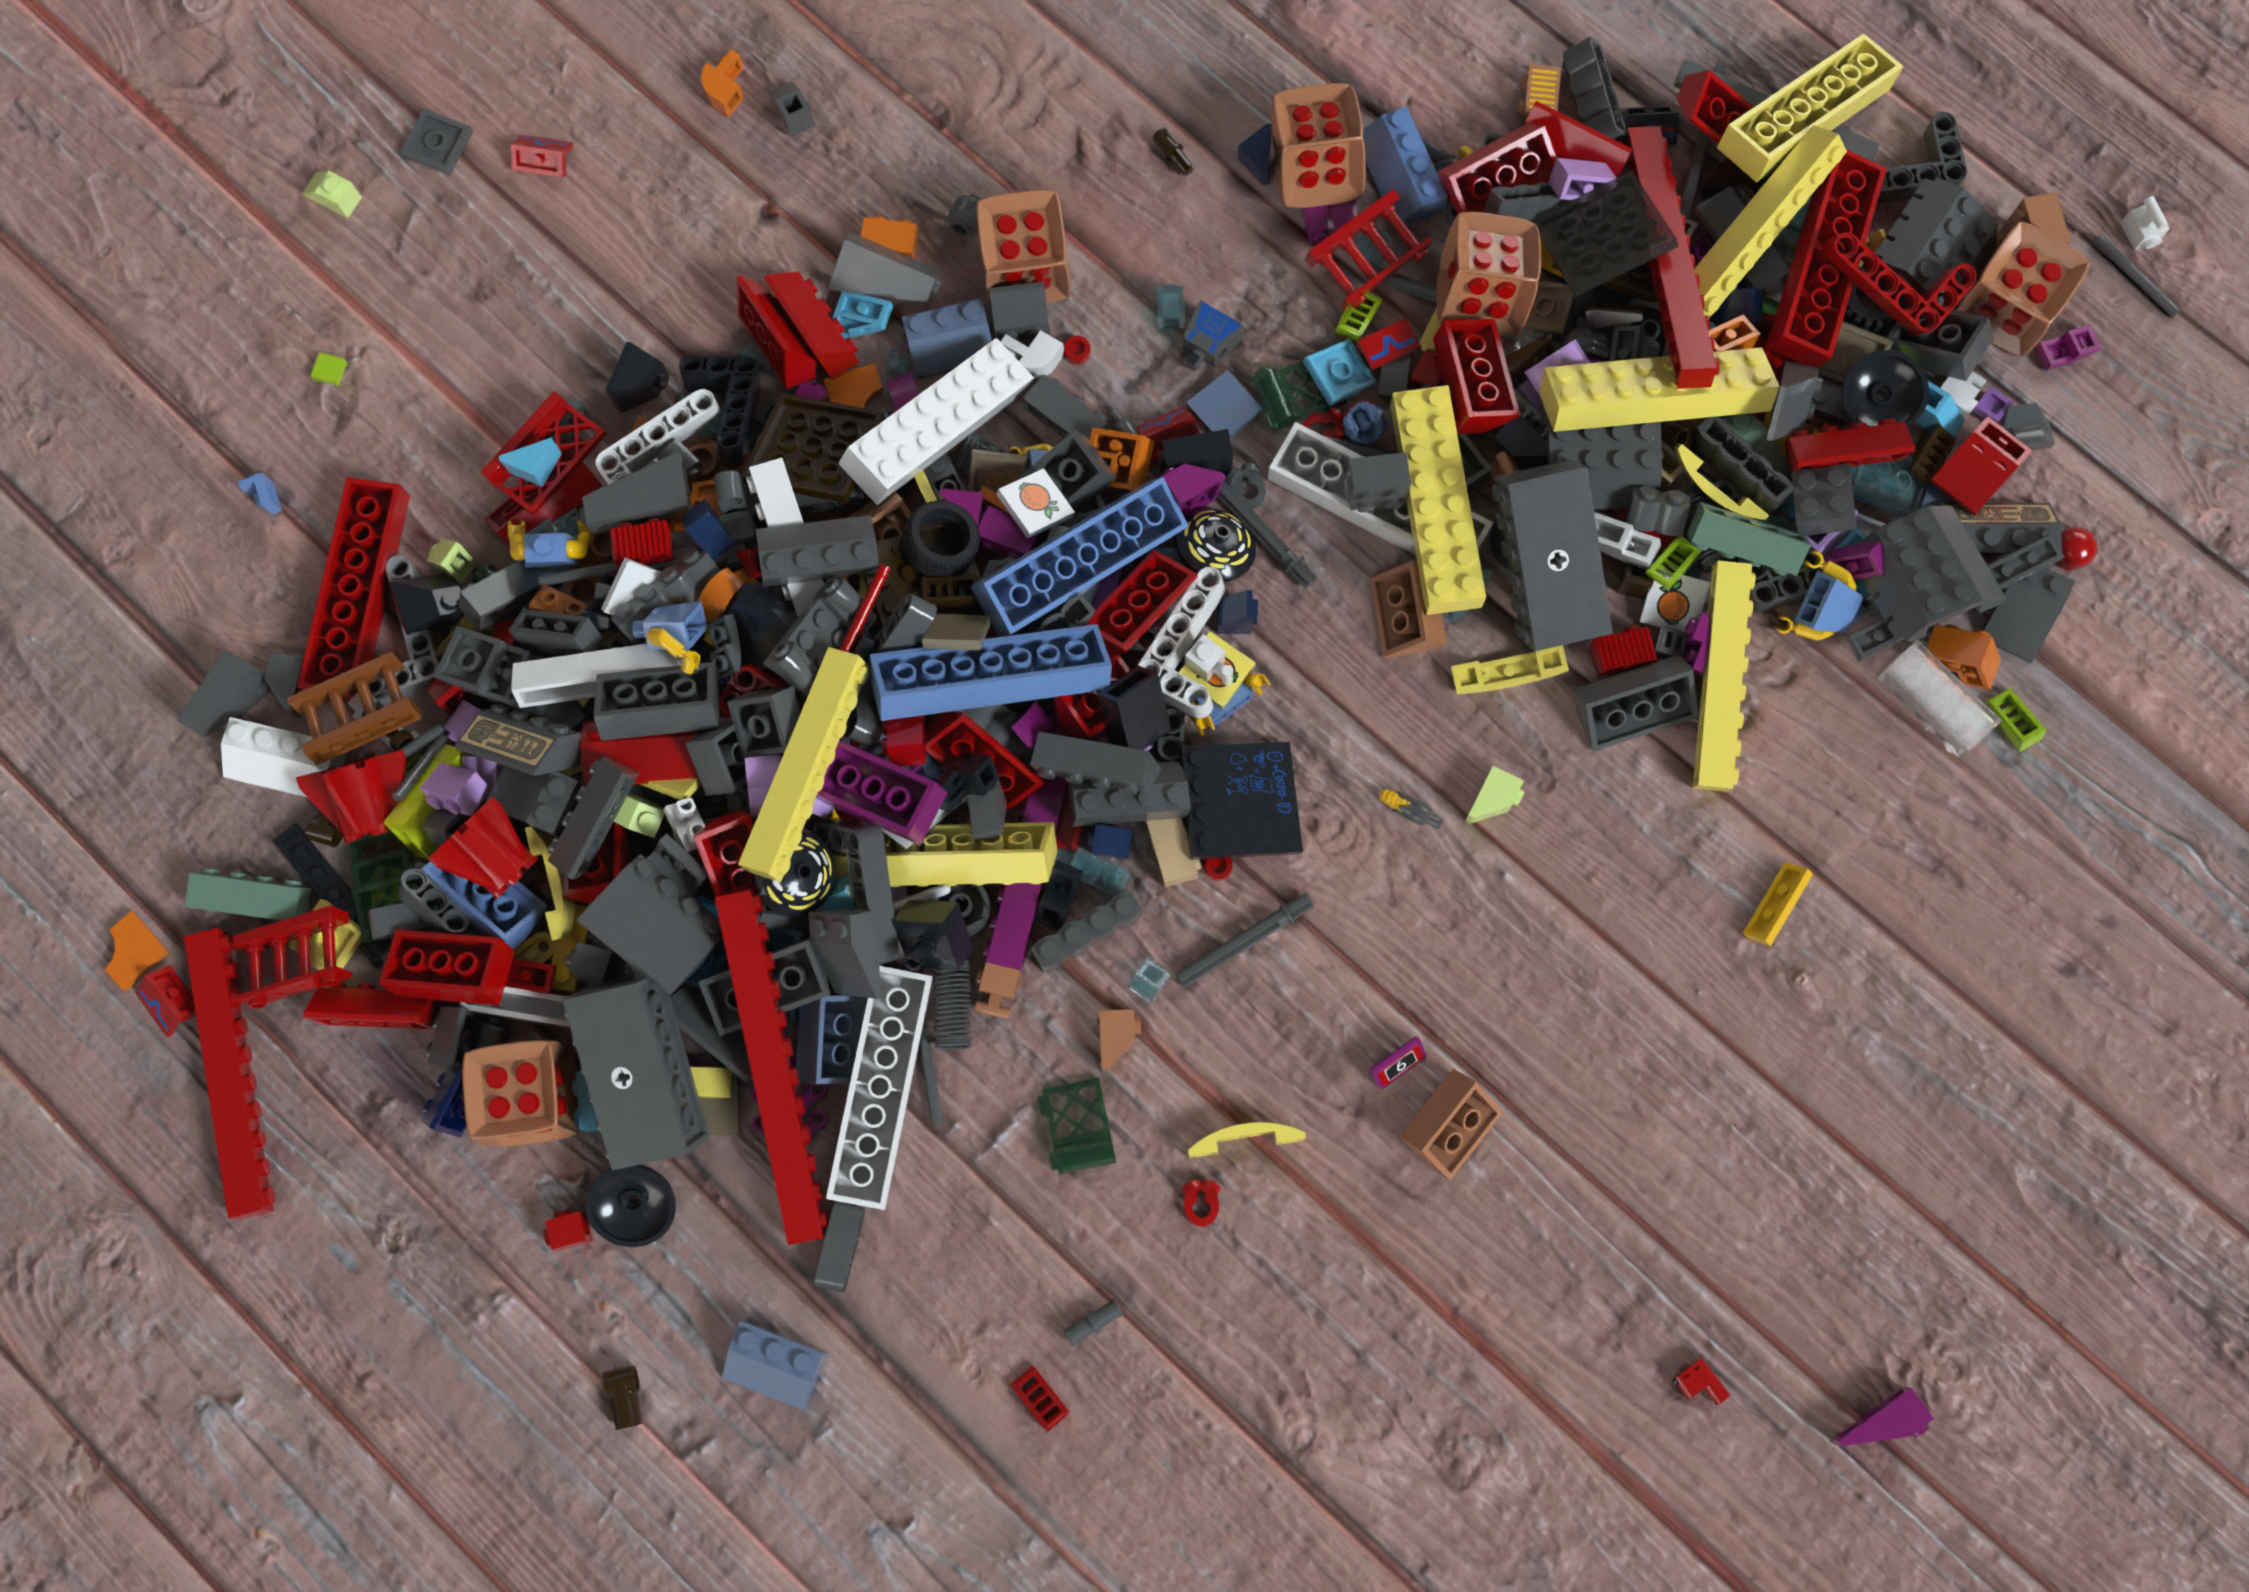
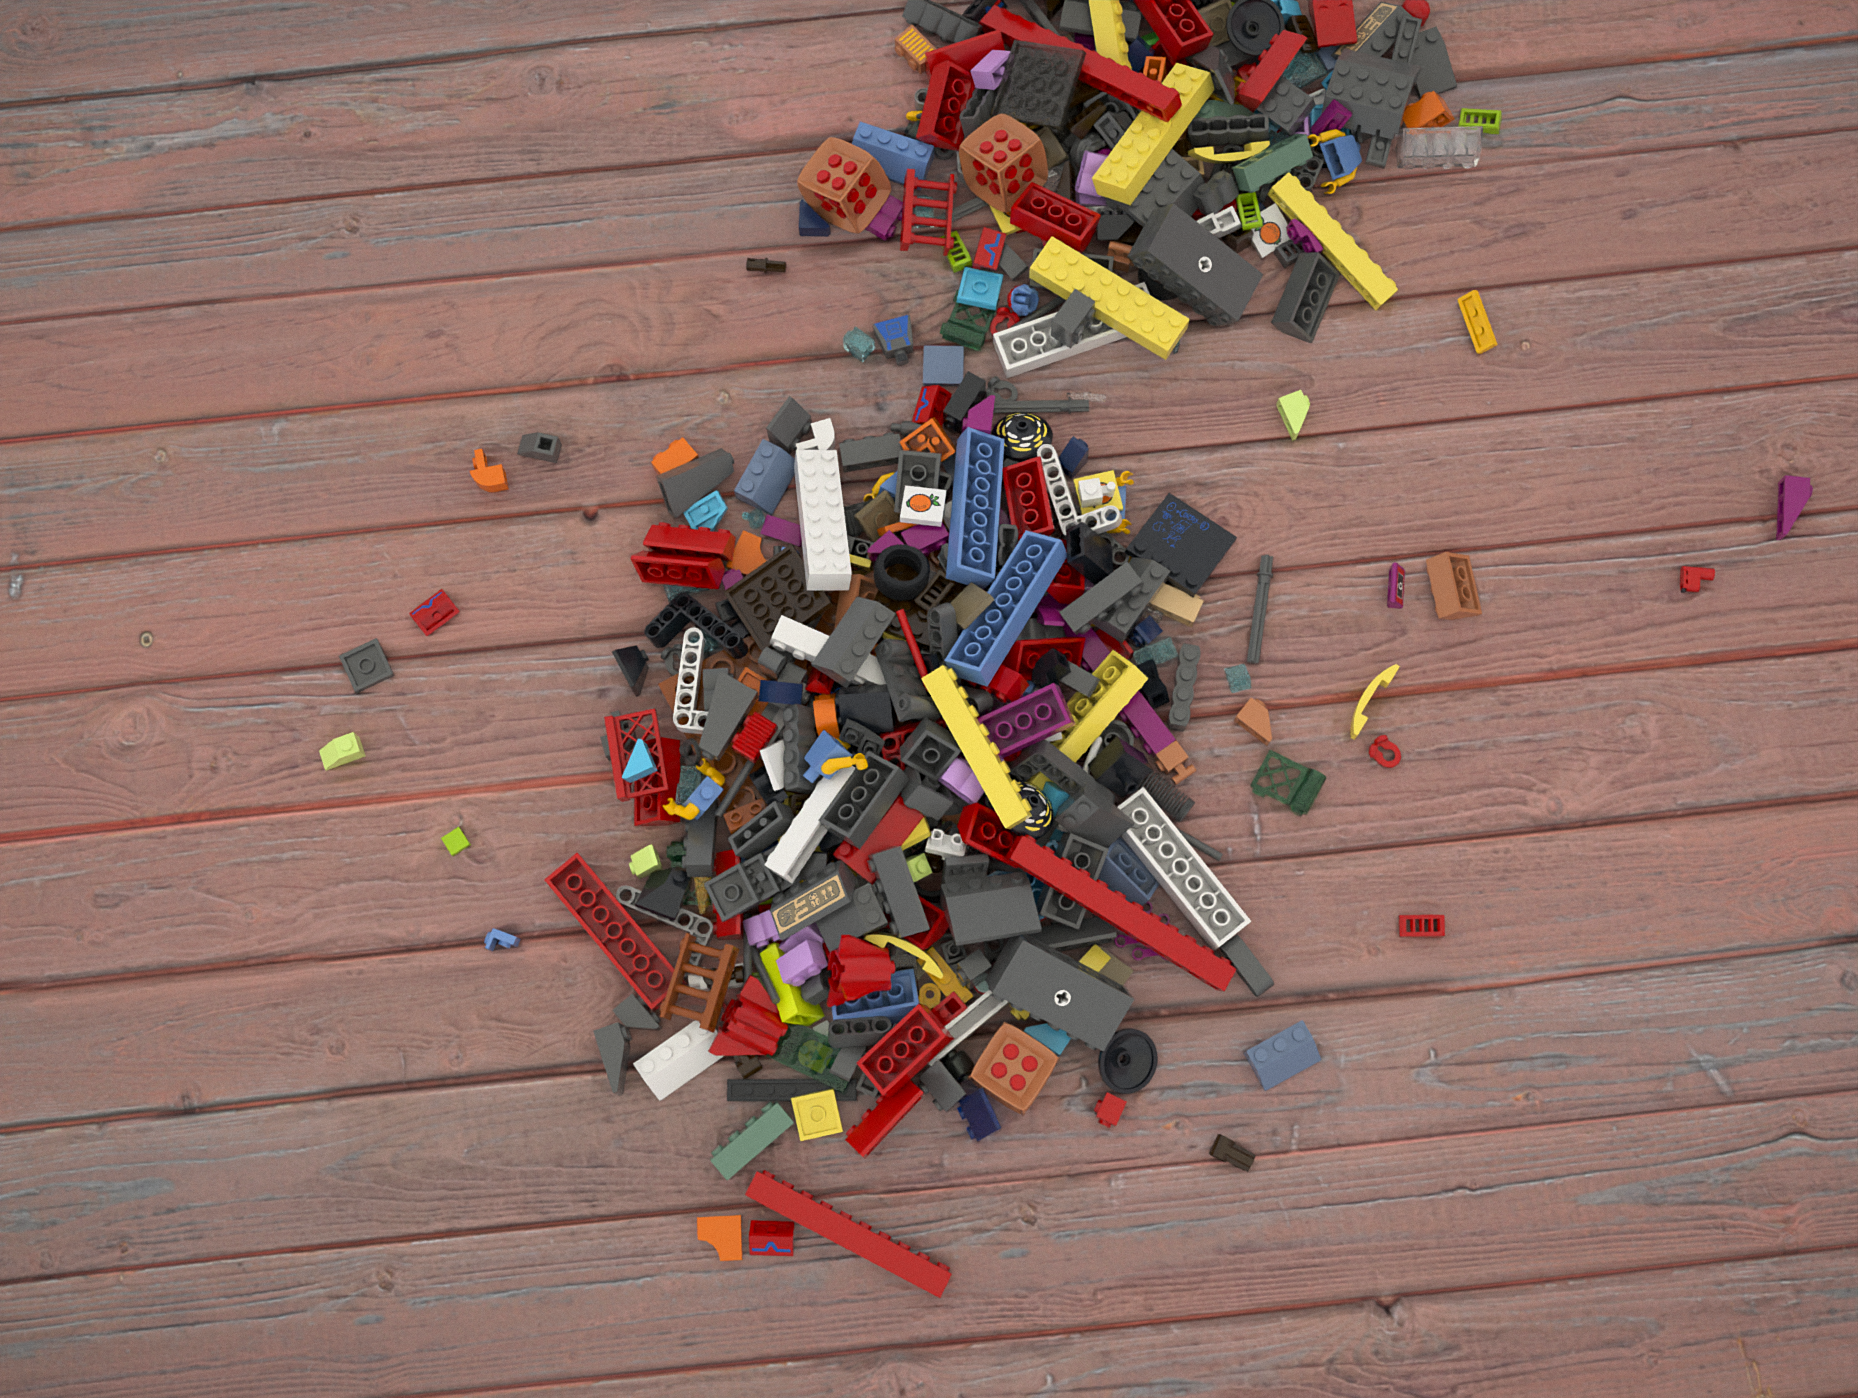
camera: 50 degrees left, 0 degrees up
(277, 936) = (793, 1139): red fence -> none
(964, 215) = (700, 406): dark grey head -> none
(1024, 242) = (755, 388): nougat piece -> none
(1077, 349) = (836, 414): red tile -> none
(1093, 1322) = (1403, 863): dark grey pin -> none
(1218, 869) = (1207, 590): red tile -> none
(1402, 614) = (1149, 371): nougat slope -> none
(1410, 808) = (1262, 461): dark grey piece -> none
(1426, 372) = (1023, 243): red brick -> none
(1509, 671) = (1230, 346): light yellow slope -> none
(1622, 651) = (1274, 276): red brick -> none

